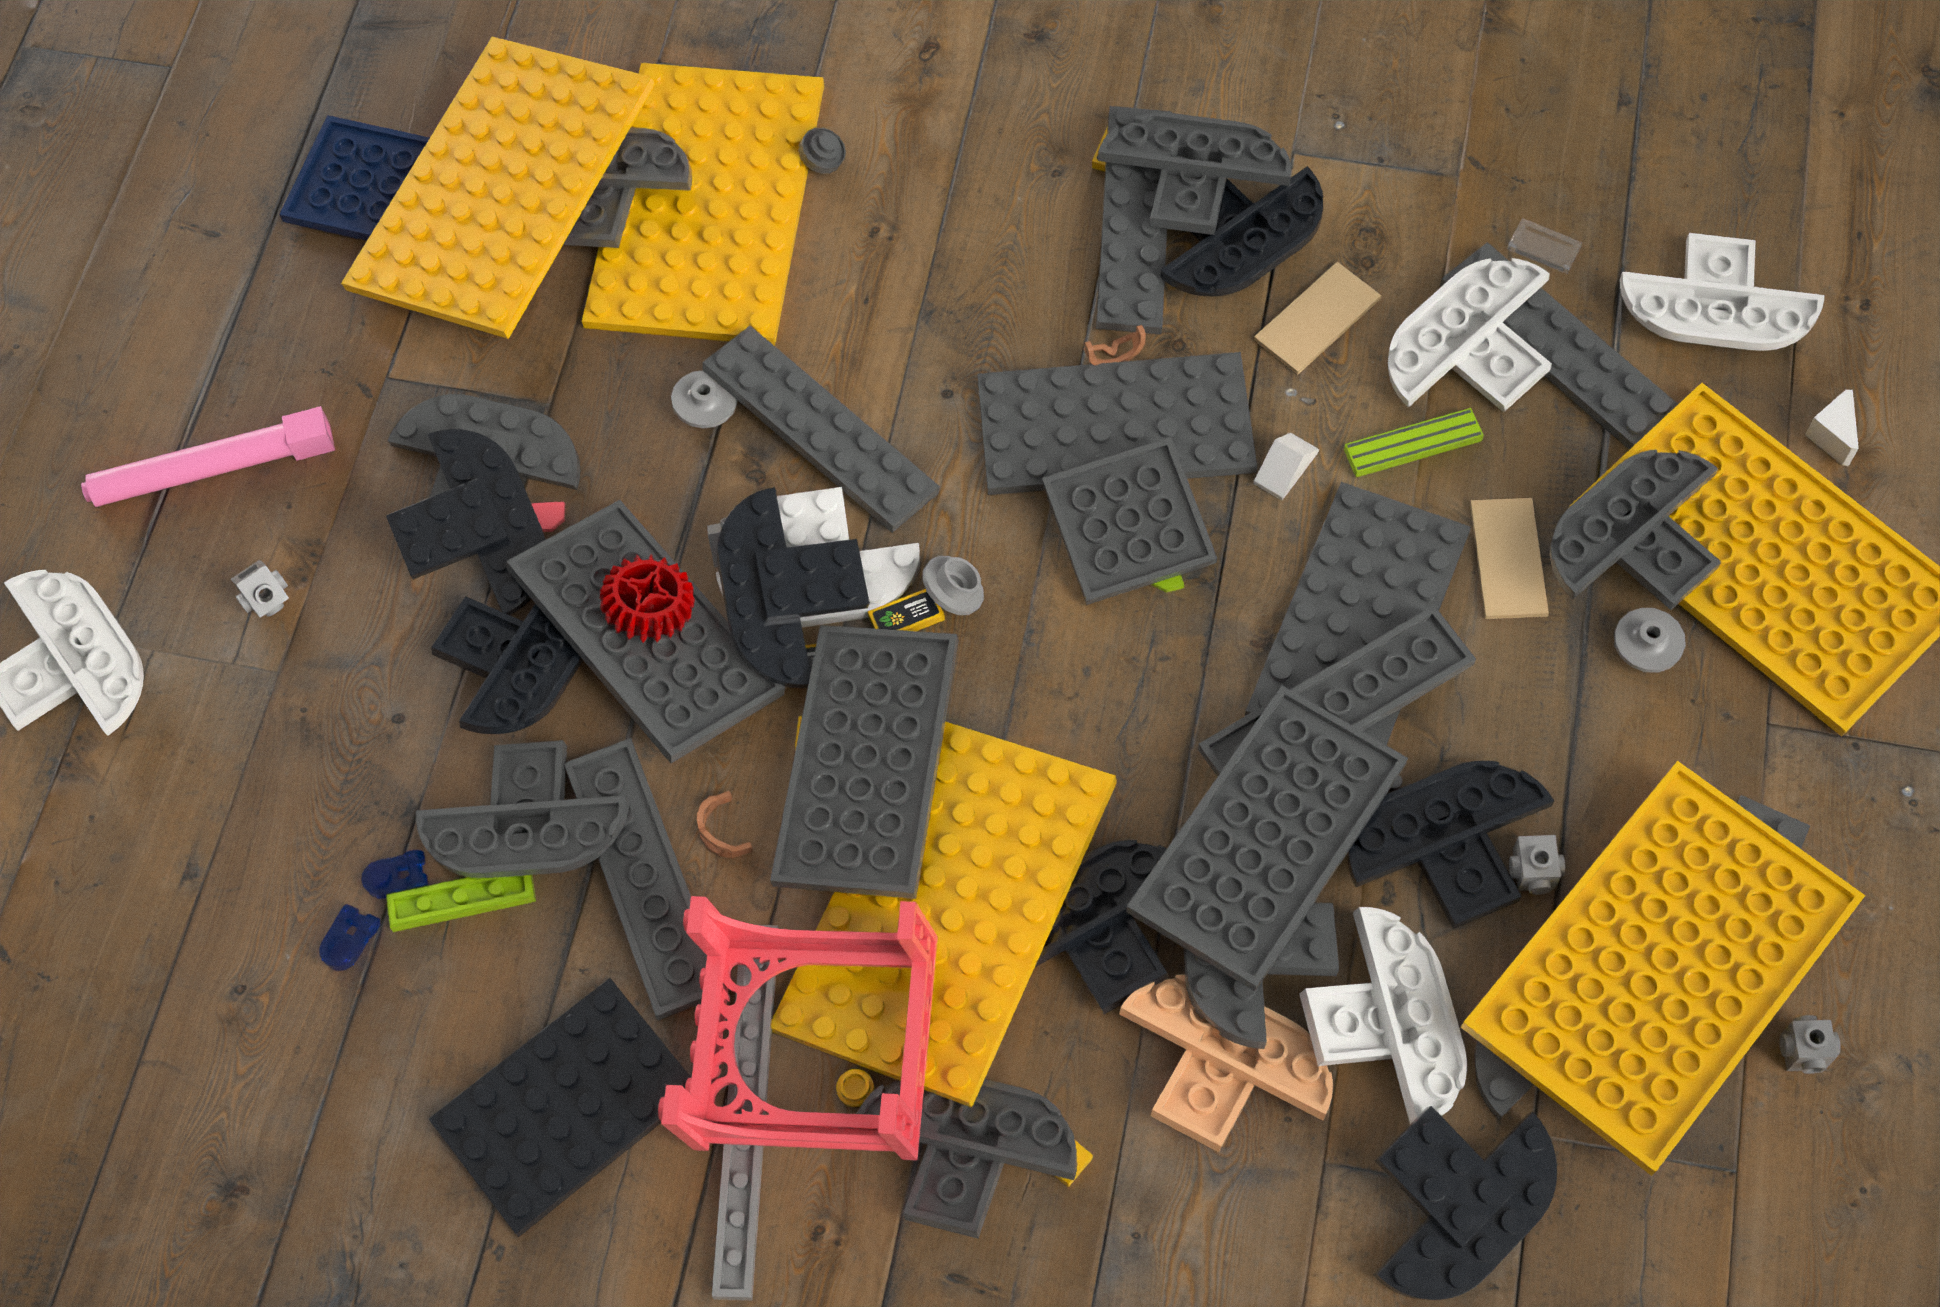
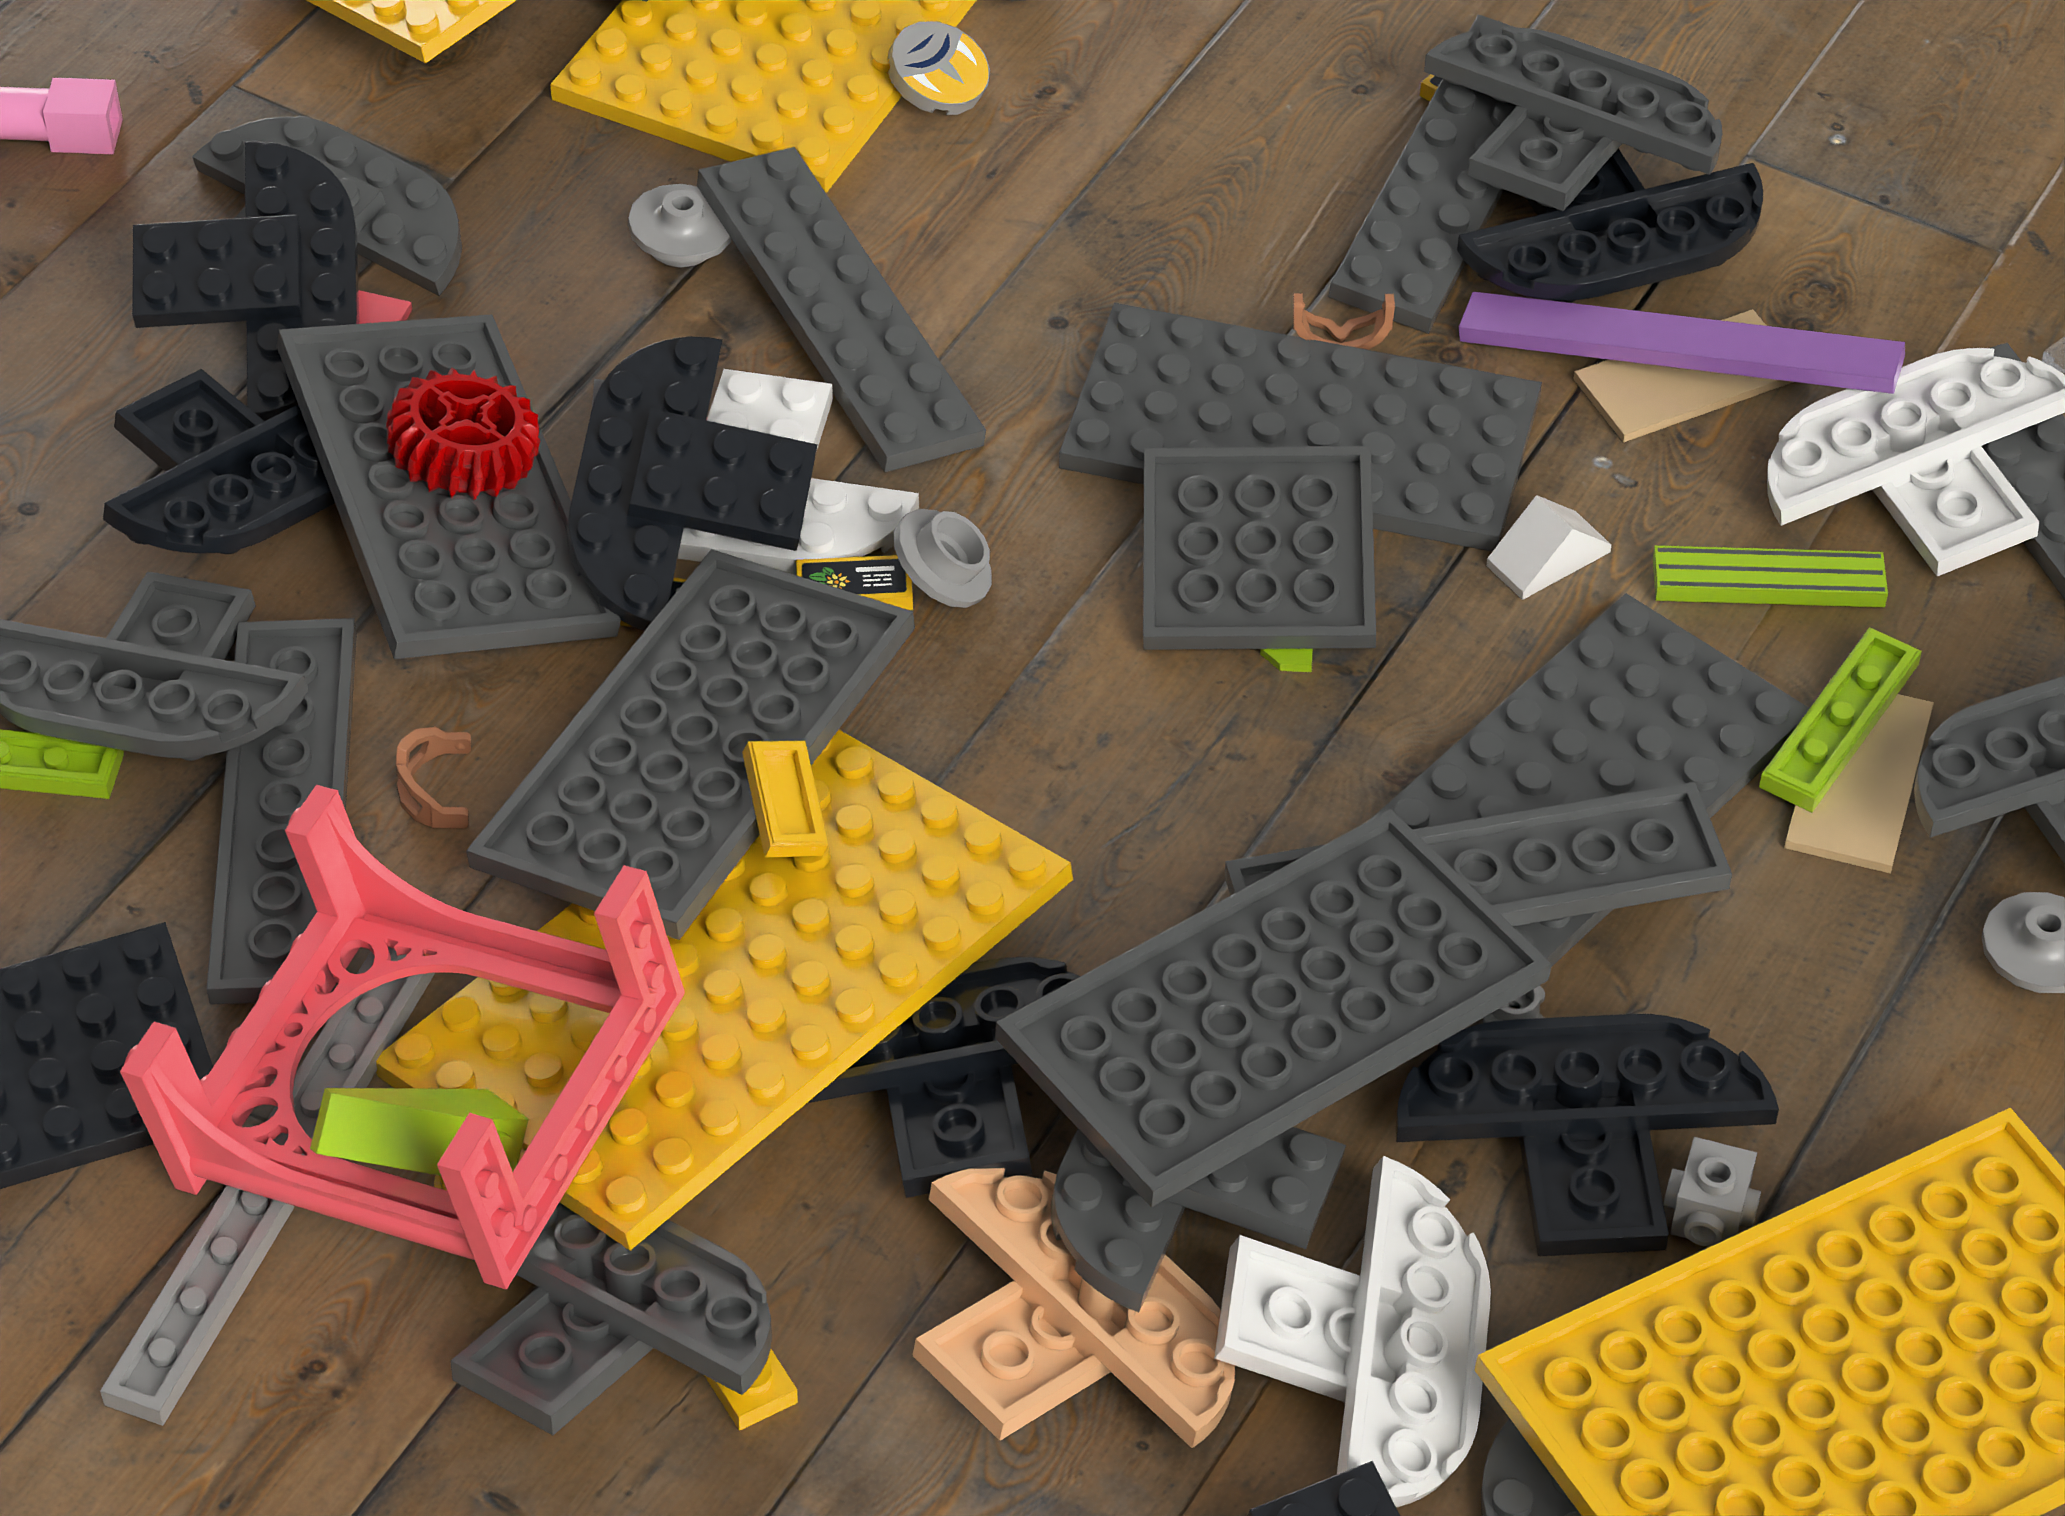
camera: 15 degrees right, 15 degrees down
(809, 239) = (938, 67): none -> tile
(834, 1080) = (408, 1124): none -> lime slope
(940, 788) = (785, 798): none -> yellow tile
(1312, 303) = (1683, 342): none -> medium lavender tile
(1488, 528) = (1840, 719): none -> lime tile

